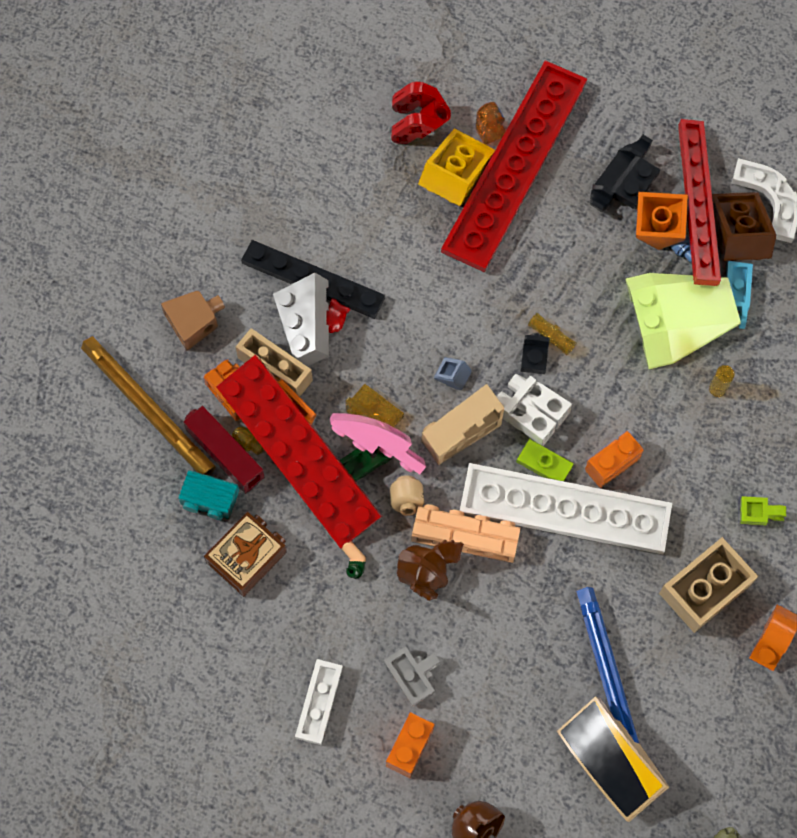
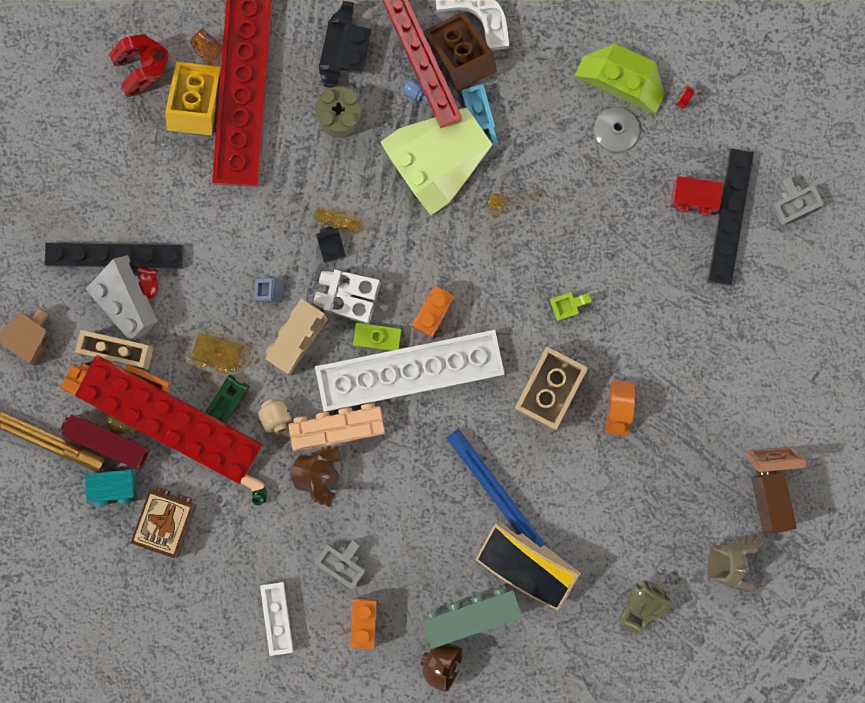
camera: 20 degrees left, 15 degrees up
(371, 433) = (222, 380): bright pink slope -> none
(531, 785) = (472, 616): none -> sand green brick
(596, 233) = (330, 102): none -> olive brick
(661, 219) = (389, 75): orange slope -> none

